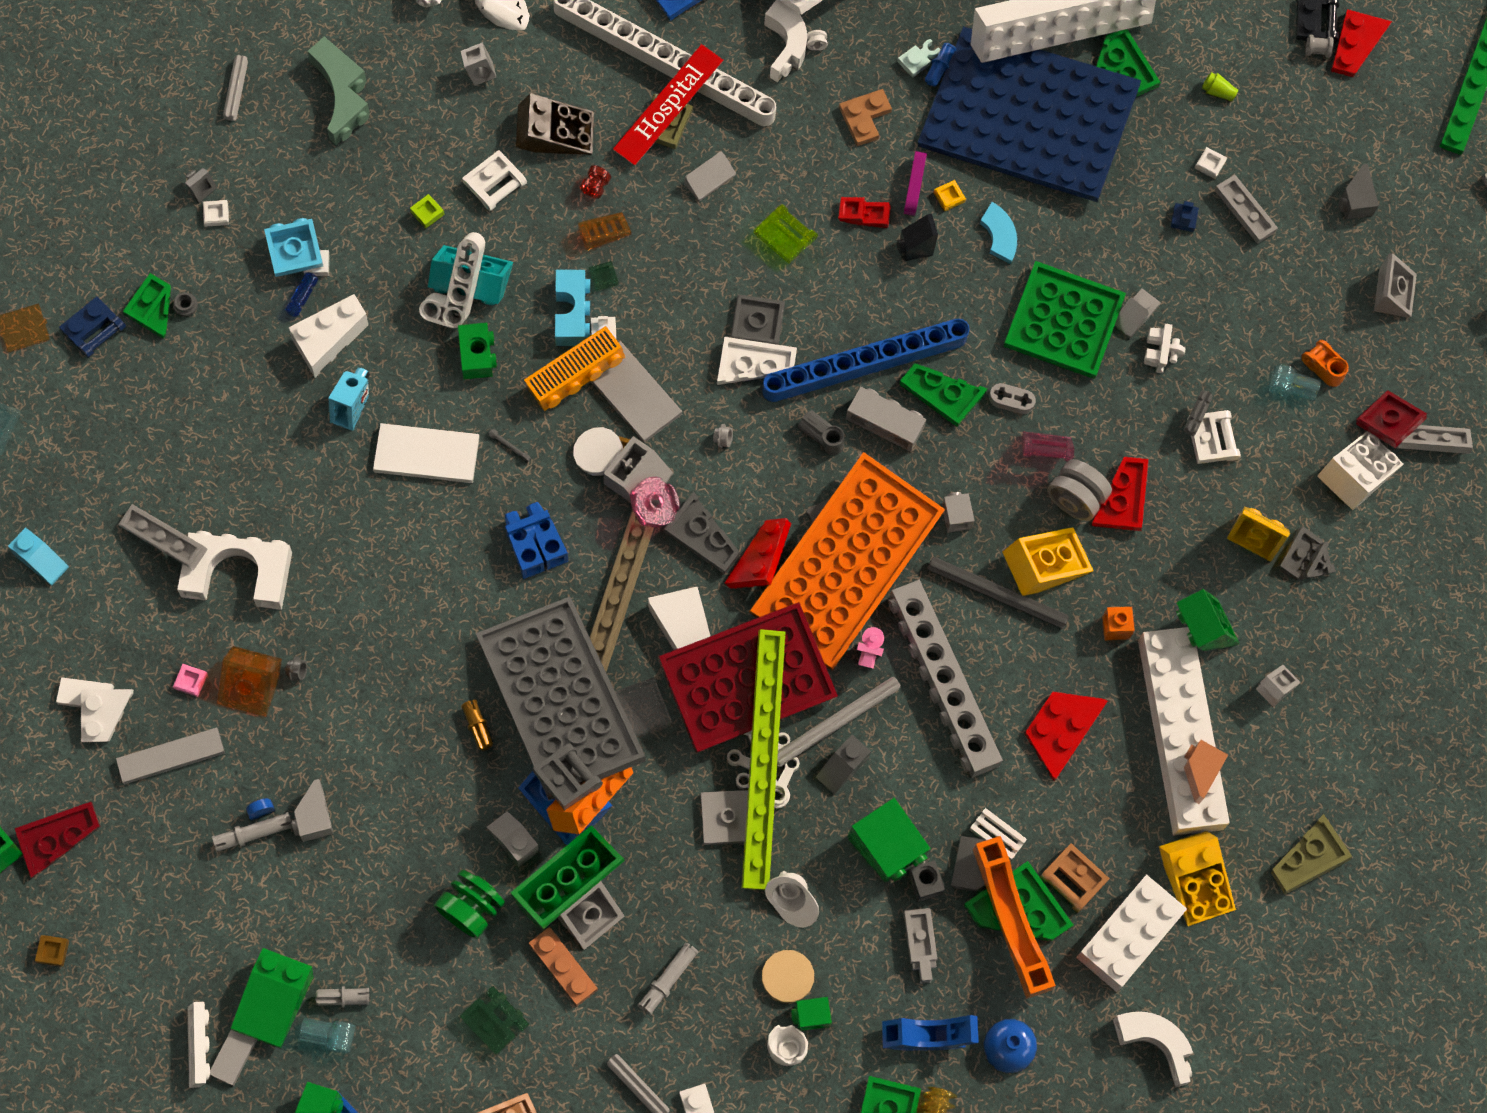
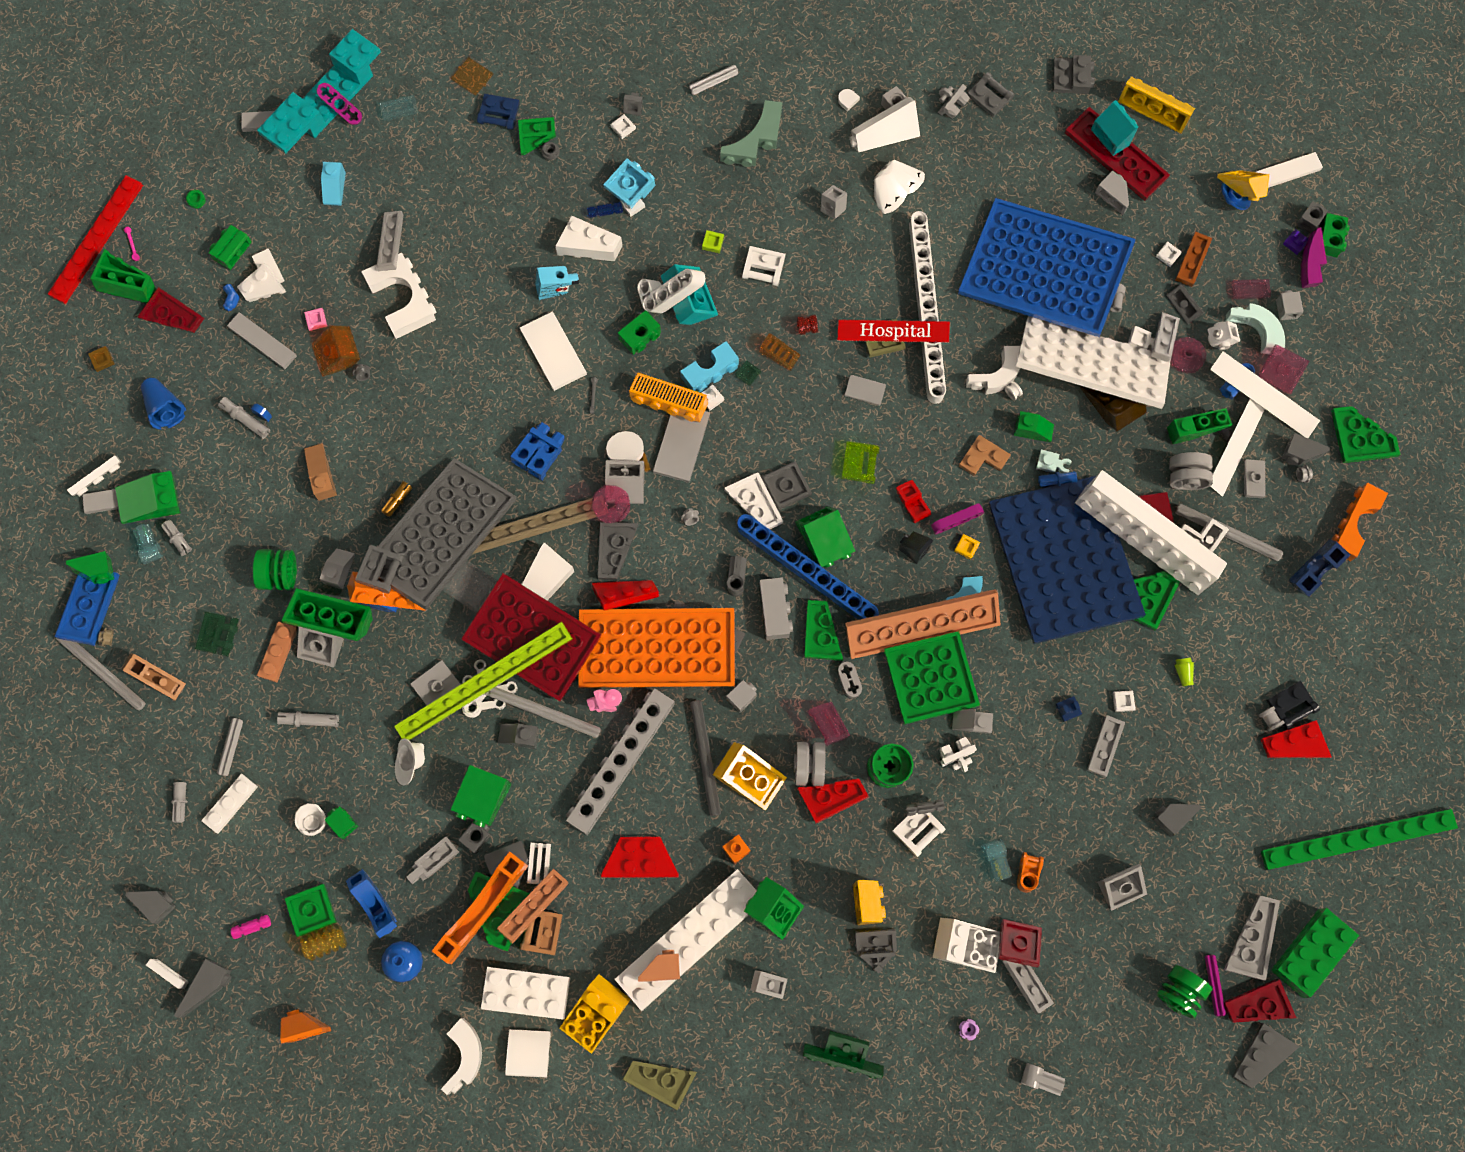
camera: 60 degrees right, 5 degrees up
(25, 718) = (229, 247): none -> green brick
(91, 755) = (232, 298): none -> blue arm
(165, 912) = (161, 405): none -> blue cone
(312, 814) = (277, 443): light grey slope -> none
(382, 787) = (319, 472): none -> medium nougat slope
(553, 127) = (827, 276): dark brown slope -> none
(787, 976) = (358, 791): tan tile -> none
(842, 316) = (826, 536): none -> green slope
(868, 49) = (1033, 427): none -> green slope
(1004, 288) = (923, 622): none -> nougat plate
(1044, 864) = (532, 906): none -> nougat plate
(1134, 404) = (898, 758): none -> green wheel
(1195, 973) = (528, 1053): none -> white slope
(1395, 655) = (845, 1053): none -> dark green bracket
(1447, 519) = (968, 1024): none -> lavender plate

